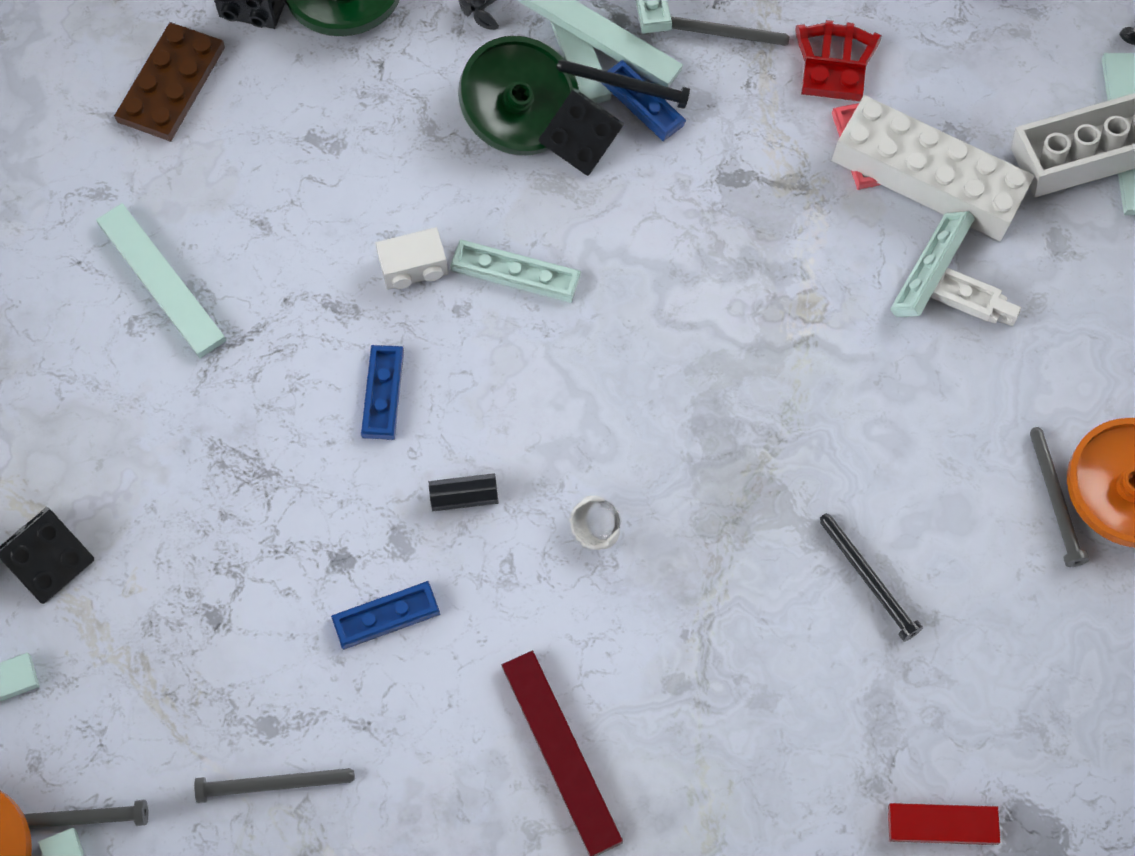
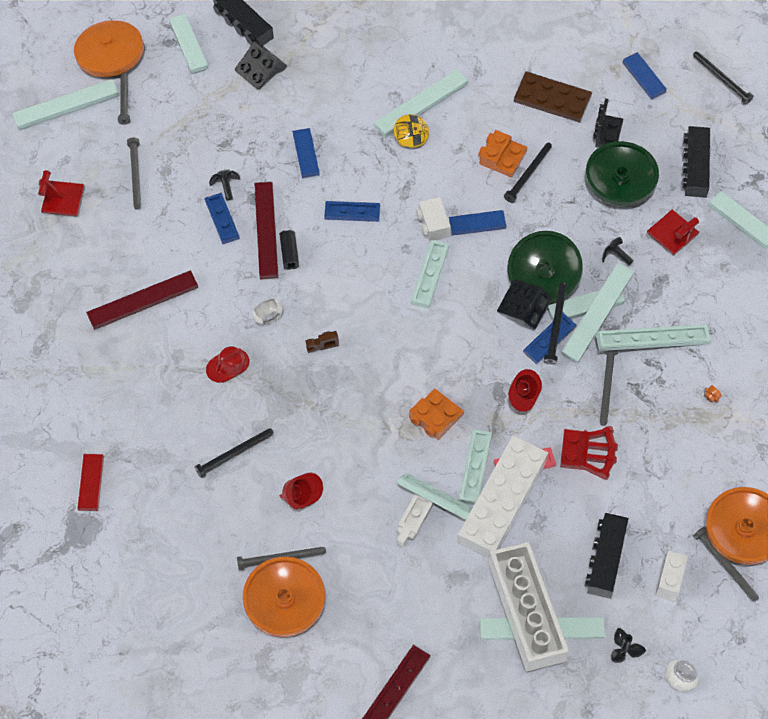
camera: 90 degrees right, 5 degrees down
(223, 293) = (411, 131): none -> yellow dish
(251, 470) = (306, 153): none -> blue tile
(282, 157) = (502, 153): none -> orange plate
(301, 605) = (224, 176): none -> black plant
(368, 146) = (510, 196): none -> black bar
(415, 535) = (266, 230): none -> dark red tile
(416, 193) = (477, 222): none -> blue tile
(651, 427) = (324, 341): none -> reddish brown plate
(695, 595) = (227, 364): none -> red piece
(743, 135) = (525, 390): none -> red piece
(783, 265) = (435, 414): none -> orange plate
(871, 212) = (475, 466): none -> light aqua tile
(942, 465) = (302, 490): none -> red piece
(1011, 40) = (608, 554): none -> black brick

